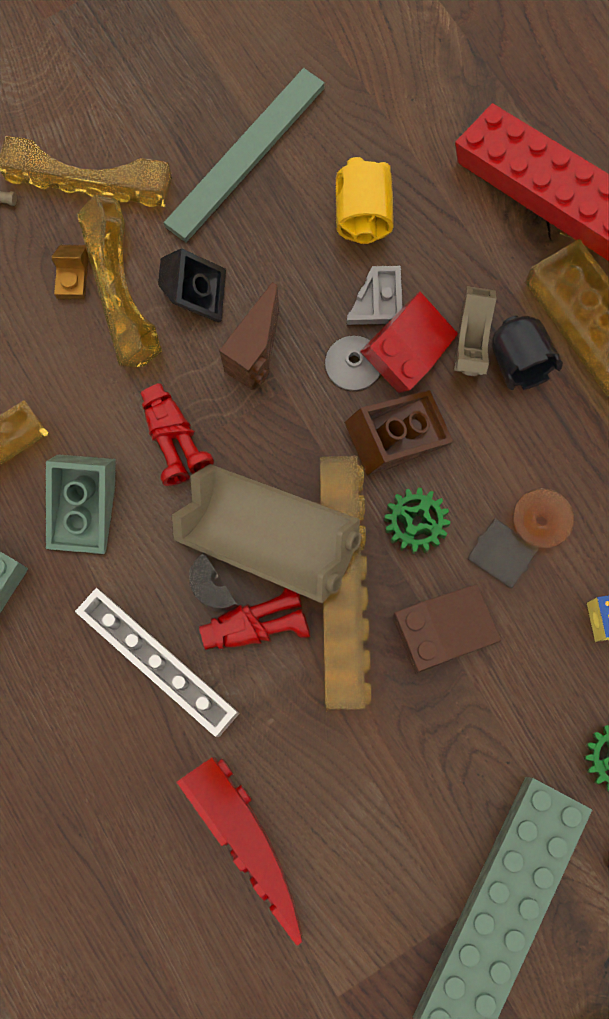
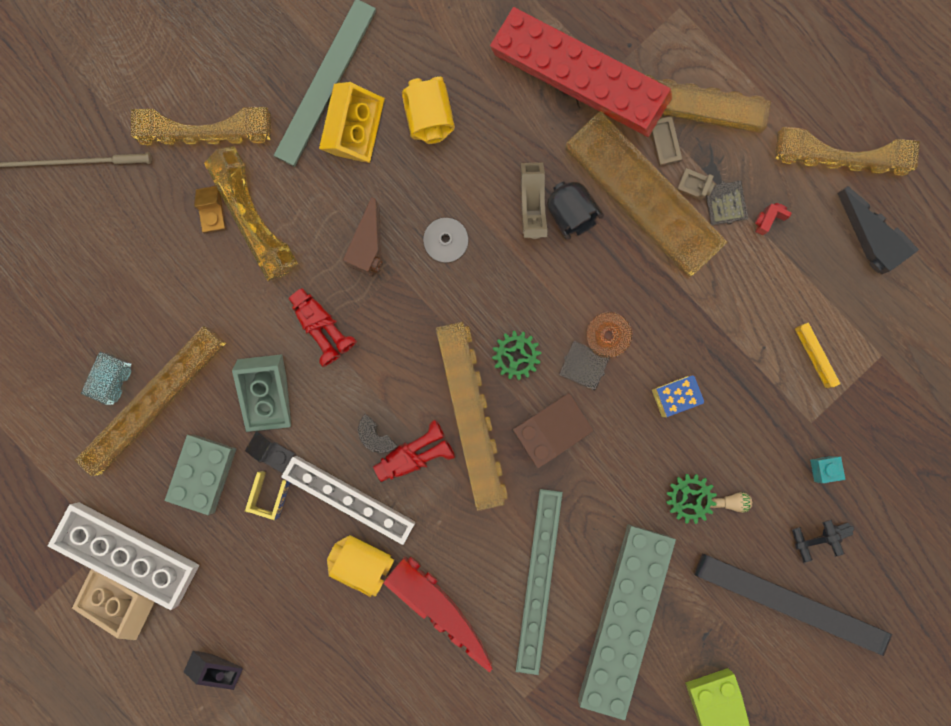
camera: 10 degrees left, 10 degrees up
(37, 628) = (251, 505): none -> light yellow piece
(68, 579) = (270, 452): none -> black slope
(150, 754) = (358, 565): none -> yellow cylinder
(193, 283) = (309, 203): black slope -> none
(267, 202) = (351, 122): none -> yellow slope
(268, 532) = (407, 391): dark tan cylinder -> none
(379, 297) = (455, 184): light grey wing -> none
(388, 835) = (539, 581): none -> sand green tile
(397, 431) = (490, 289): reddish brown slope -> none
(409, 343) = (486, 218): red slope -> none

